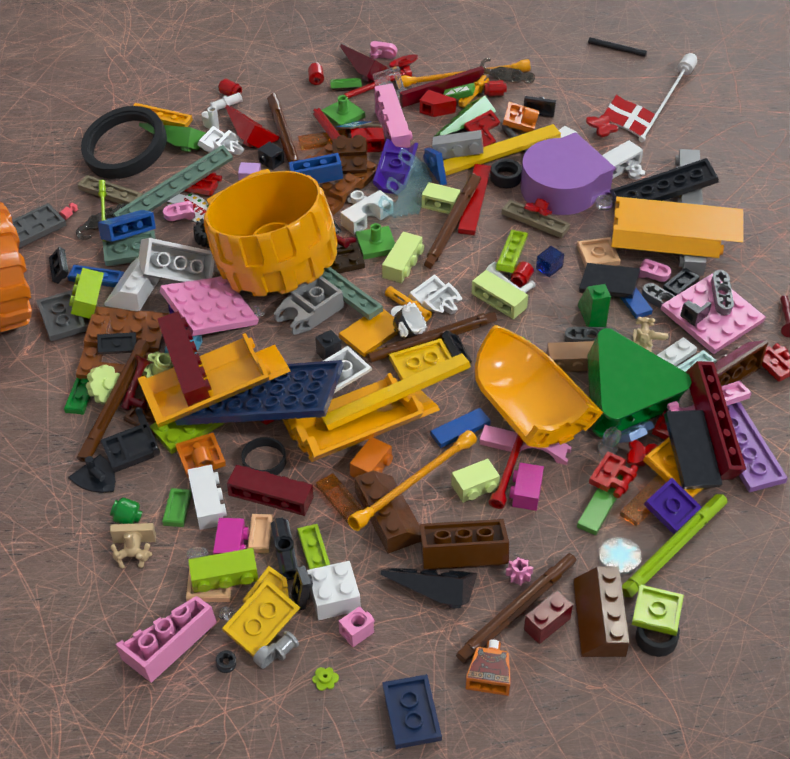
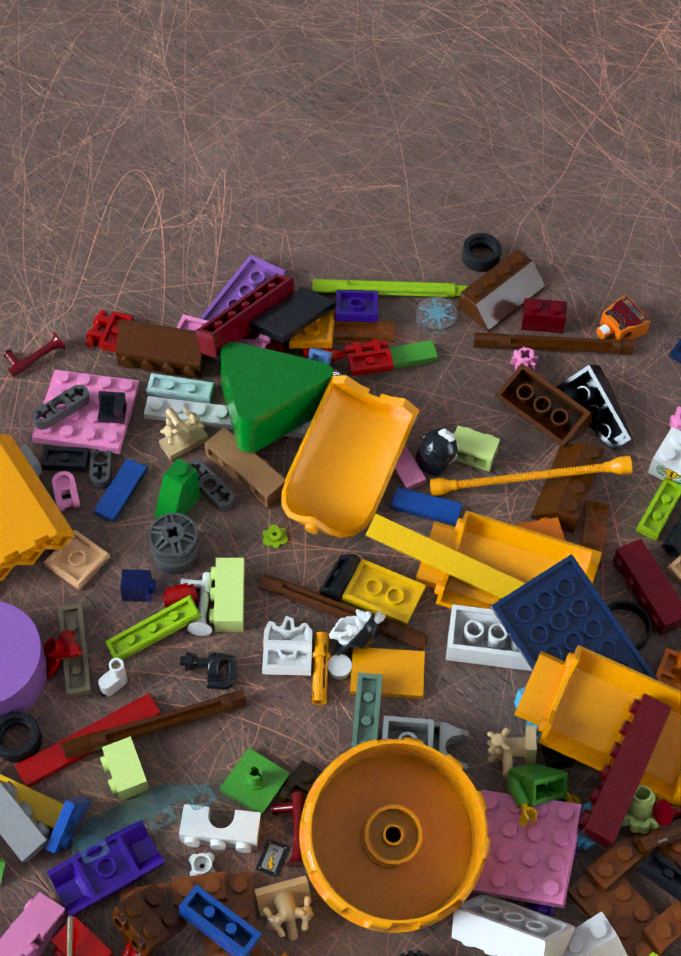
camera: 135 degrees left, 10 degrees up
(227, 326) = (537, 785): none -> bright green torso
(261, 337) = (506, 748): none -> tan piece
(327, 344) = (452, 684): black brick -> none
(402, 257) = (259, 726): yellowish green brick -> none
(459, 263) = (213, 664): none -> black piece
(491, 446) = (437, 451): none -> black hair
(498, 498) = (472, 421): red piece -> none
(499, 221) = (113, 679): none -> white piece
(527, 486) = (440, 408): dark pink brick -> none
(559, 286) = (174, 543): none -> dark grey wheel
(618, 279) = (118, 515): black tile -> none
(657, 610) = (469, 253): lime tile -> none

